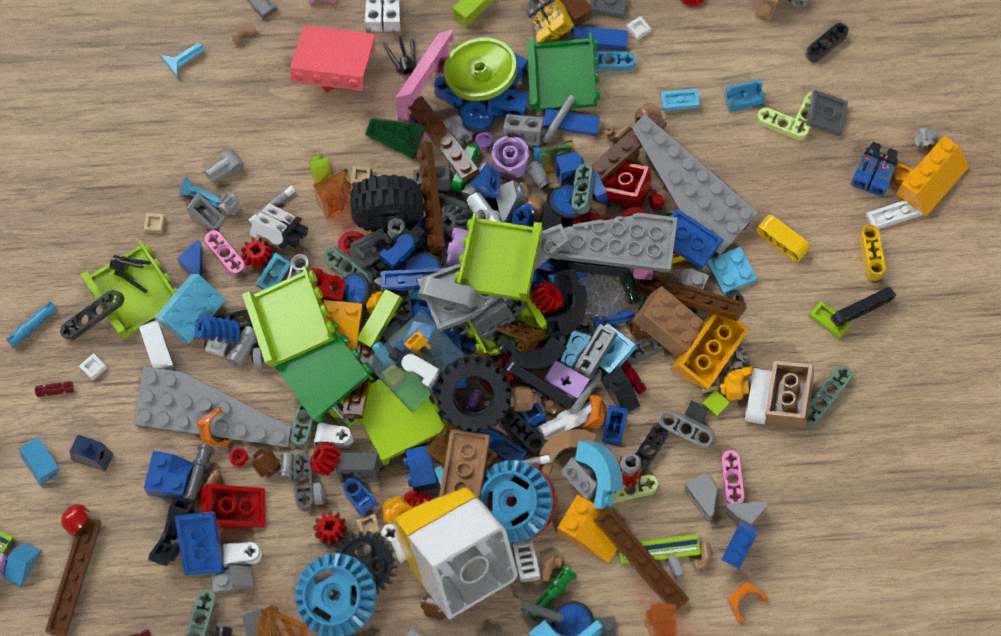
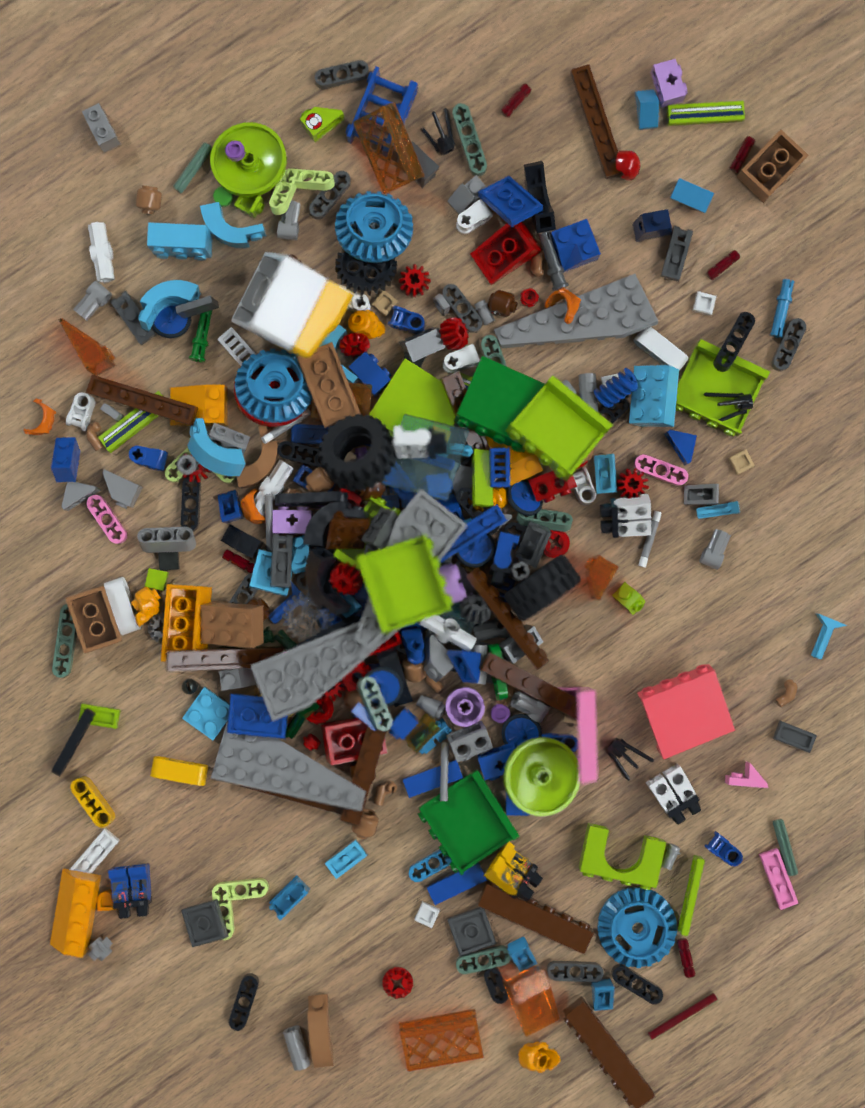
camera: 150 degrees right, 20 degrees up
(48, 285) = (796, 341): none -> dark grey beam
(87, 419) = (676, 254): none -> dark grey plate
(228, 204) = (686, 515): light grey gear -> none
(359, 174) = (588, 614): tan tile -> none
(360, 329) = (499, 451): none -> blue slope
(396, 134) = (580, 670): dark green wing -> none
(416, 342) = (432, 466): light orange tile -> none
(447, 293) = (430, 522): light grey beam -> none
(549, 565) = (216, 354): medium nougat arm -> none
(661, 506) = (151, 457): none -> blue piece
(706, 583) = (80, 412): none -> white piece

